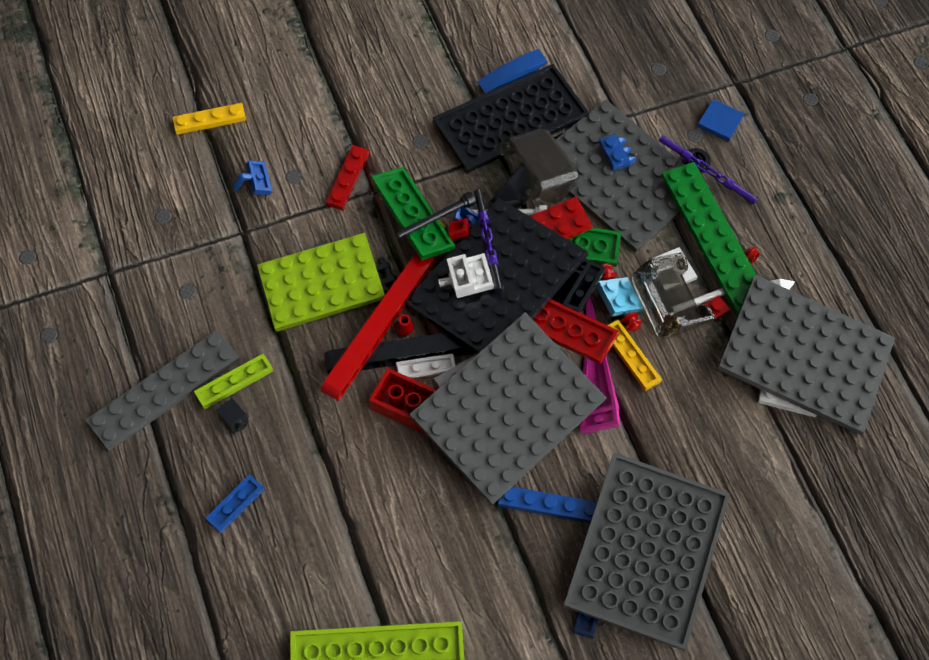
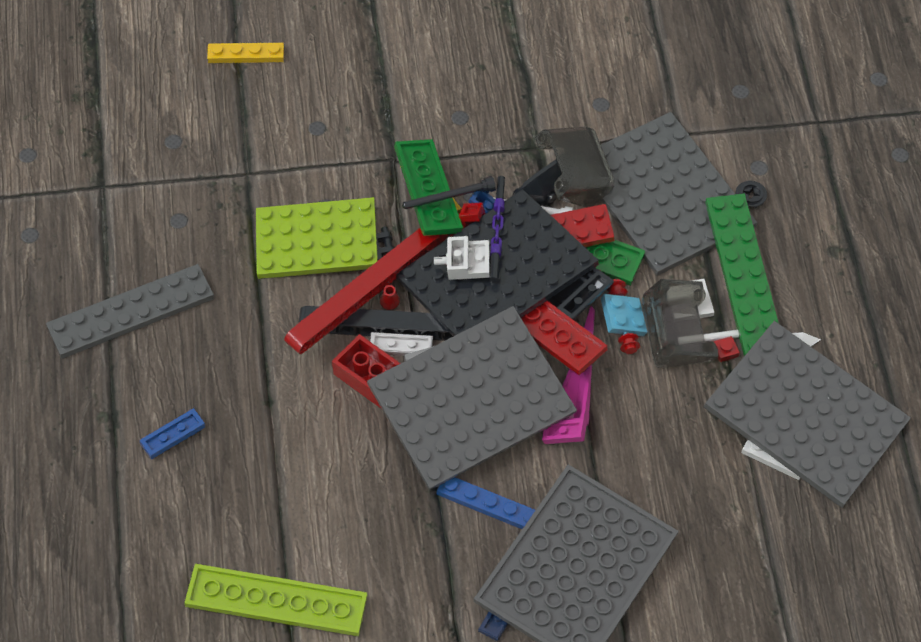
camera: 15 degrees right, 5 degrees down
(233, 381) = (202, 316): lime plate -> none
(233, 416) = (192, 349): black brick -> none
(257, 176) = (279, 121): blue plate -> none
(347, 177) = (372, 140): red plate -> none
(513, 70) = (579, 63): blue slope -> none
(518, 107) = (590, 99): black plate -> none
(615, 152) = (664, 168): blue plate -> none
(634, 358) = (620, 378): yellow plate -> none
(720, 120) = (791, 157): blue tile -> none
(728, 183) = (740, 186): dark purple piece -> none
(752, 254) = (781, 302): red plate -> none

